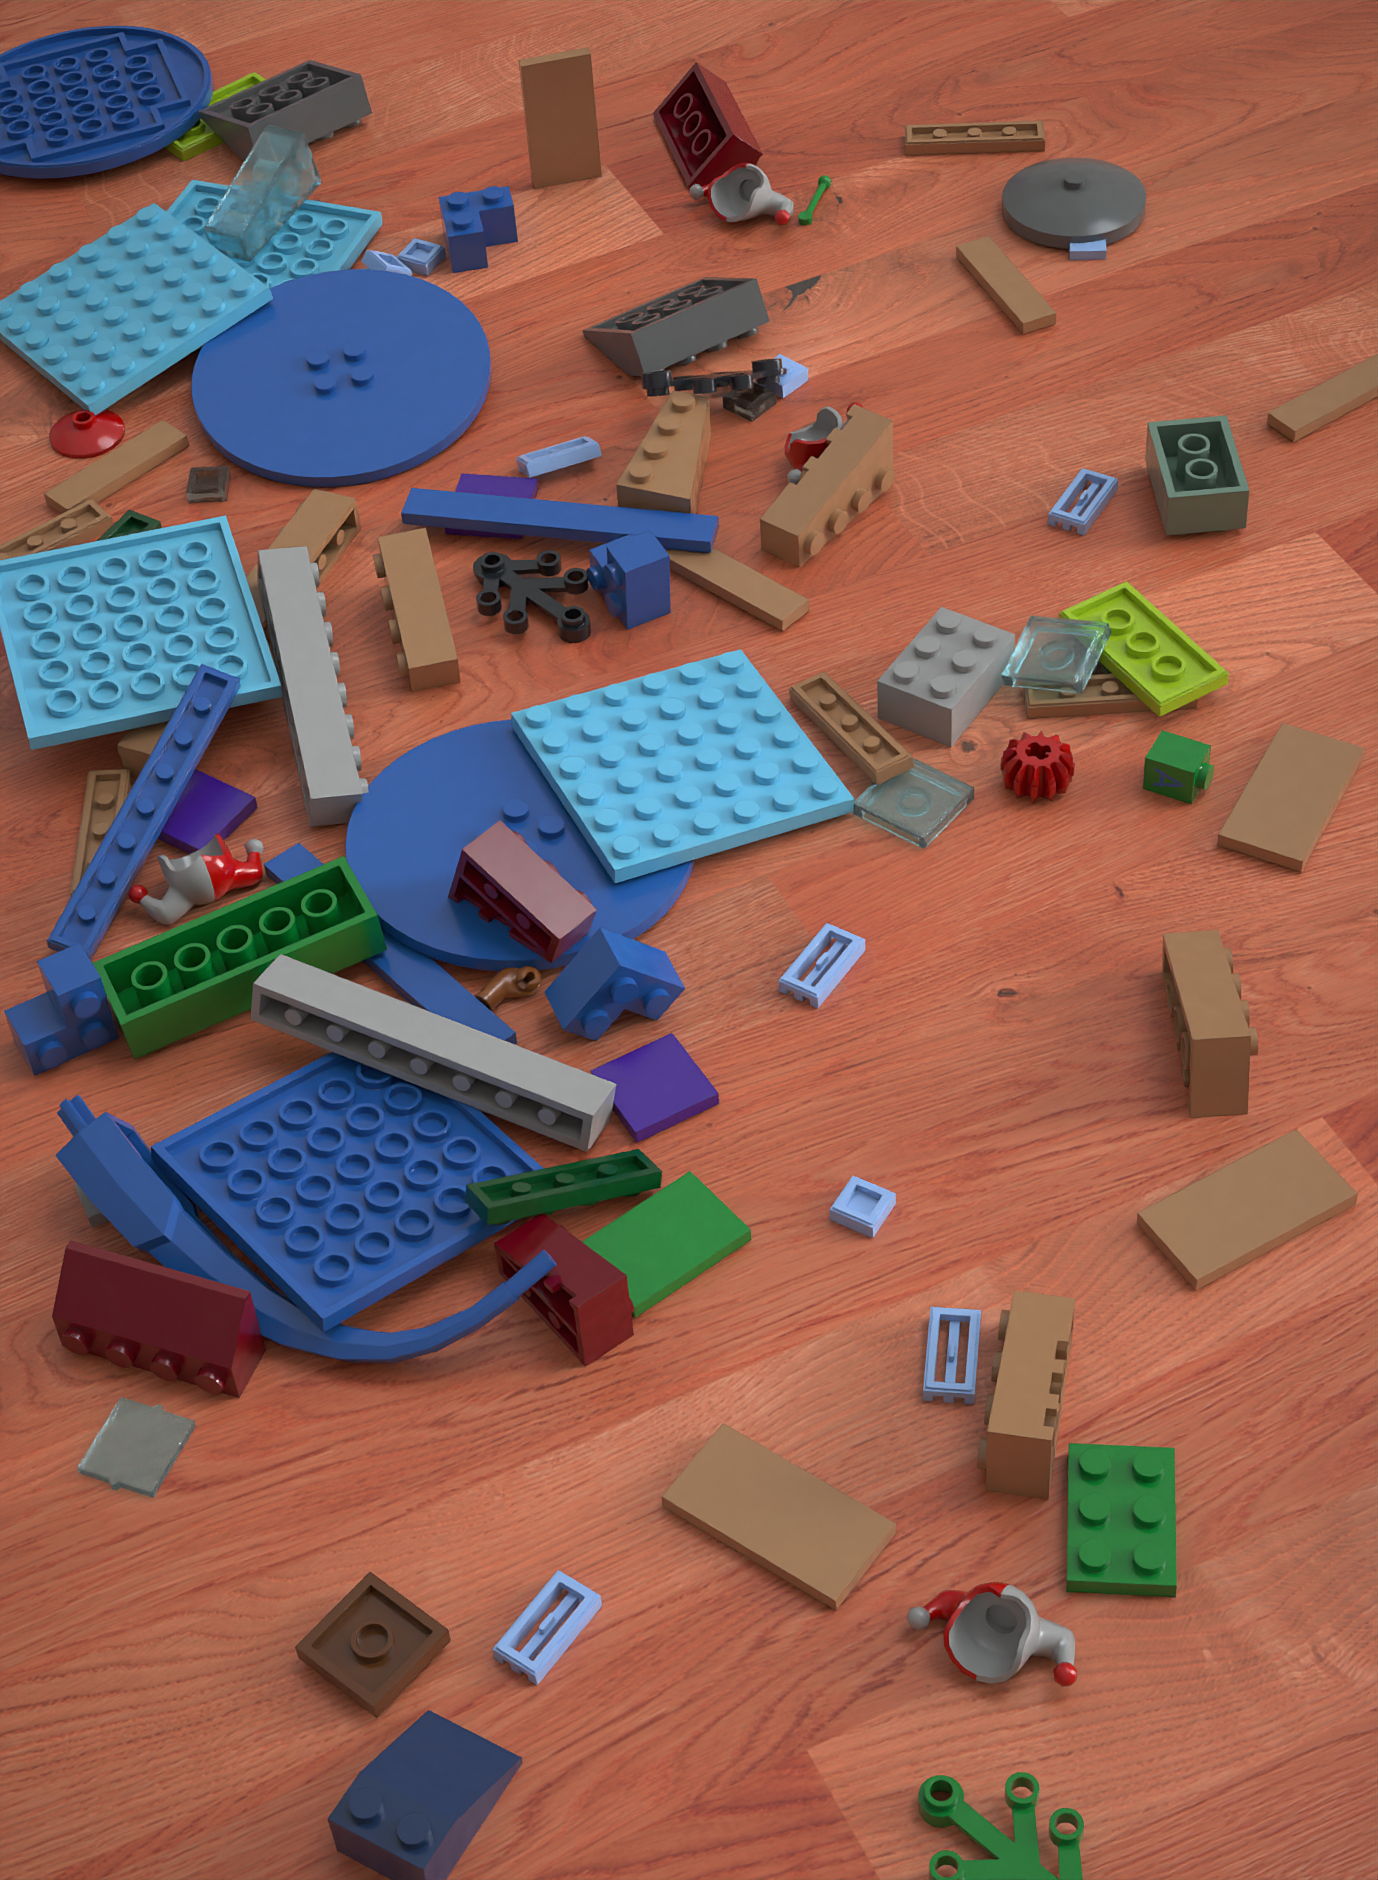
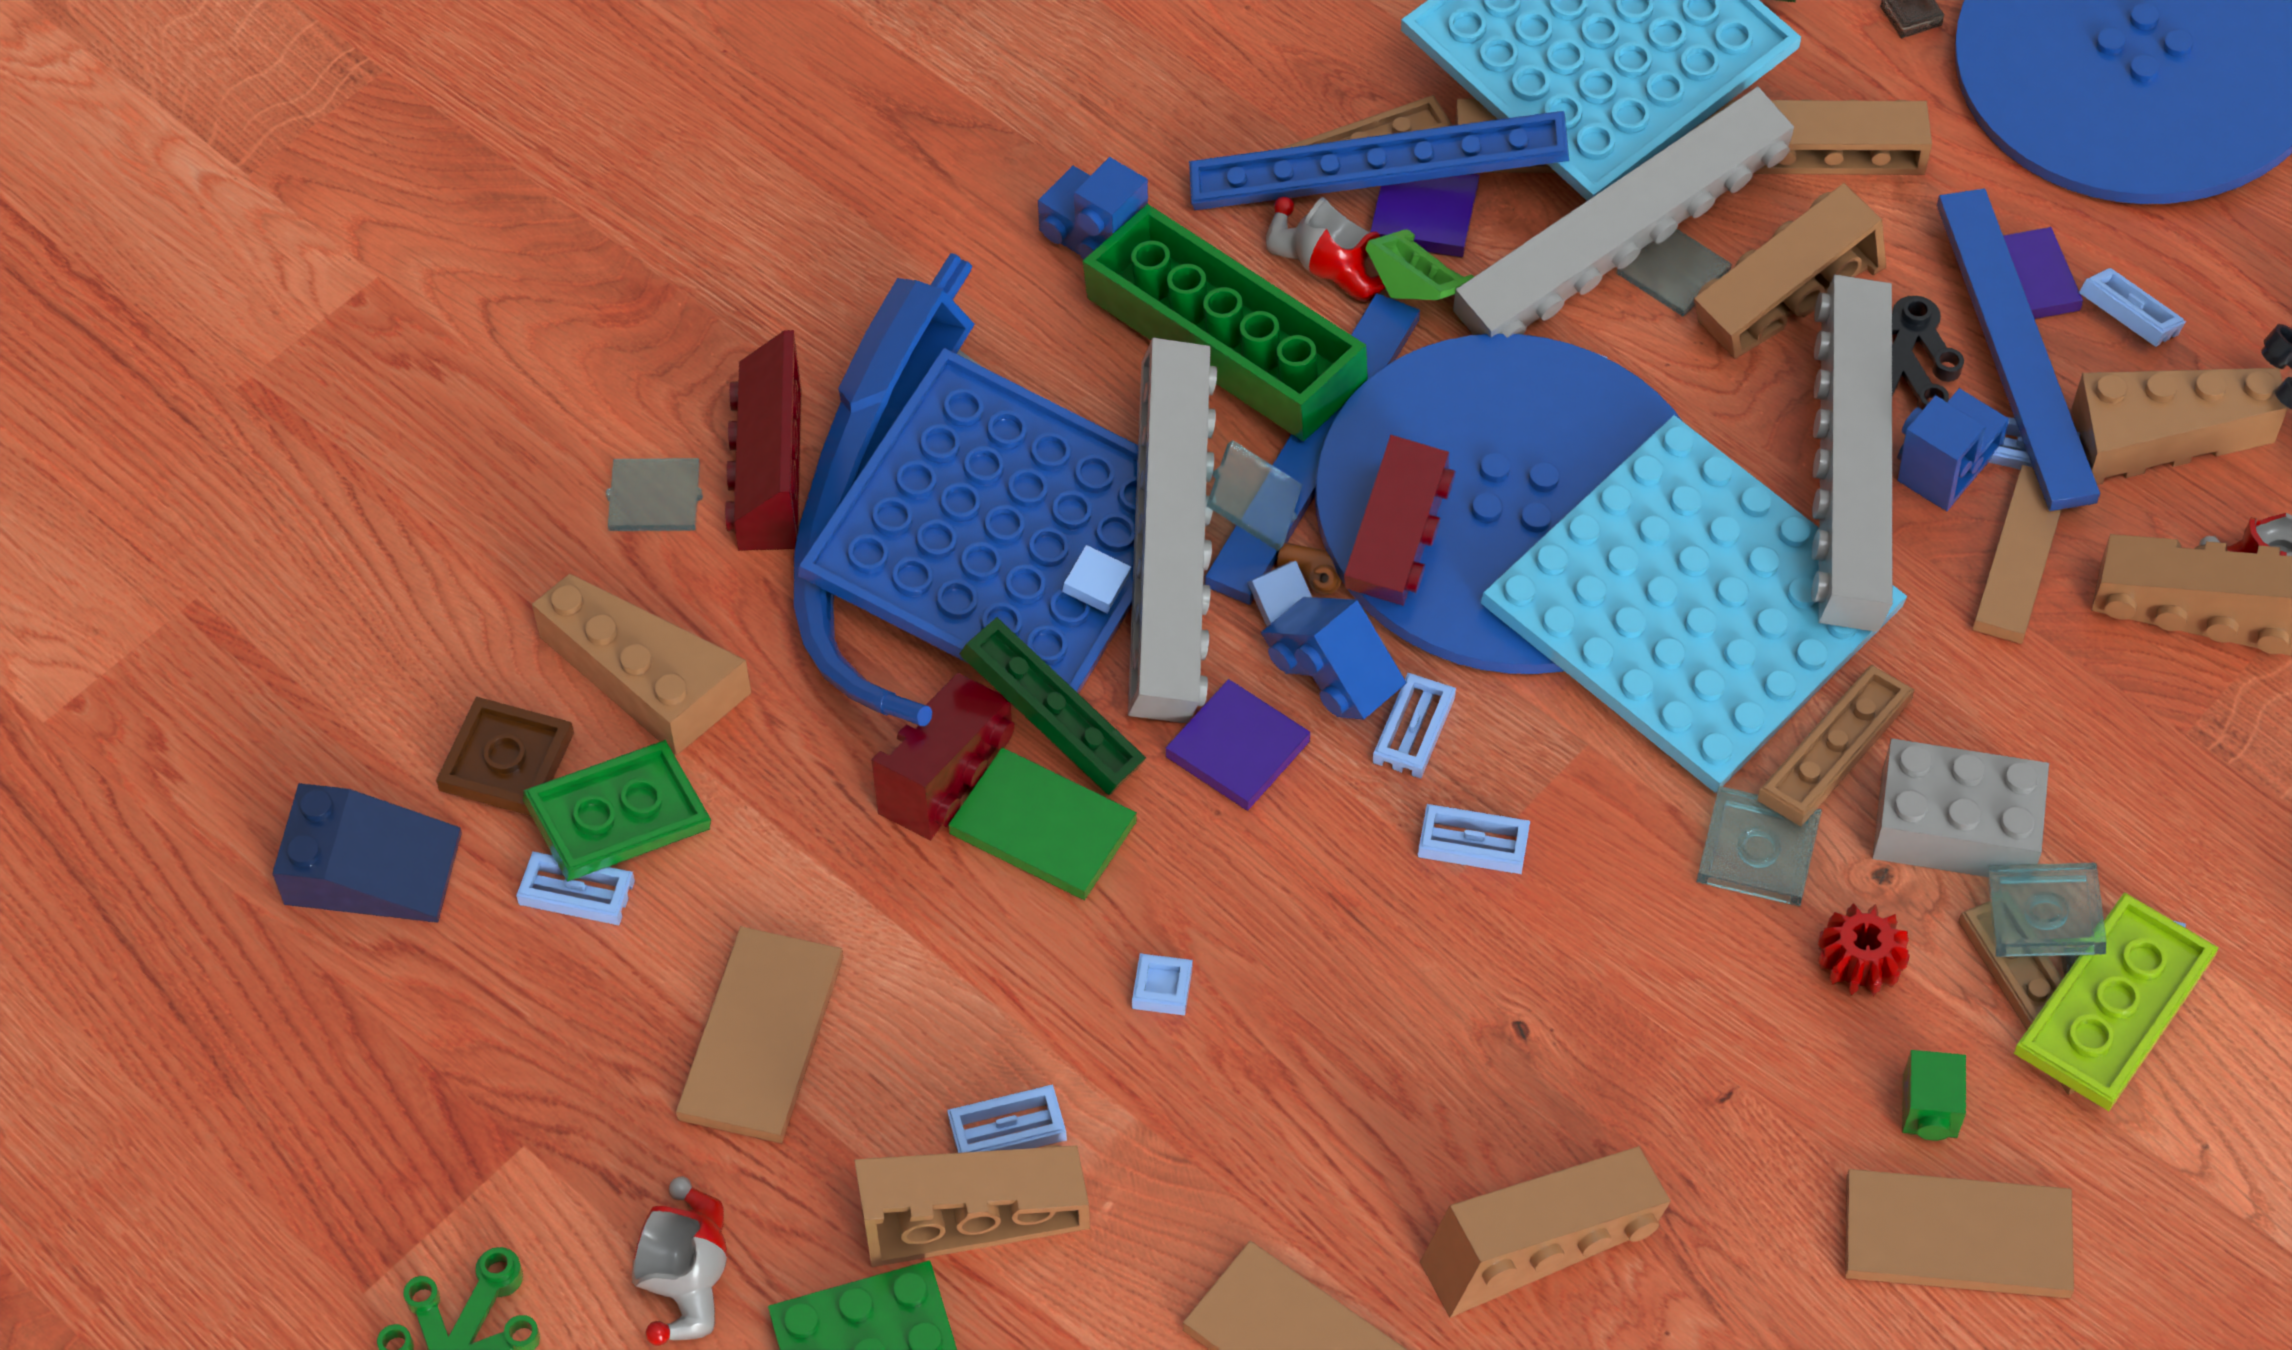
camera: 65 degrees right, 10 degrees up
(272, 825) = (1411, 270): none -> bright green slope
(330, 1497) = (642, 662): none -> medium nougat wedge
(367, 685) = (1675, 270): none -> clear light blue piece
(431, 987) = (1254, 495): none -> clear light blue piece
(450, 1119) = (1096, 579): none -> light blue tile
(486, 1562) = (616, 810): none -> green tile
(527, 1011) = (1278, 590): none -> light blue tile
(613, 620) = (1853, 454): none -> light grey brick
(695, 979) = (1401, 758): none -> light blue tile

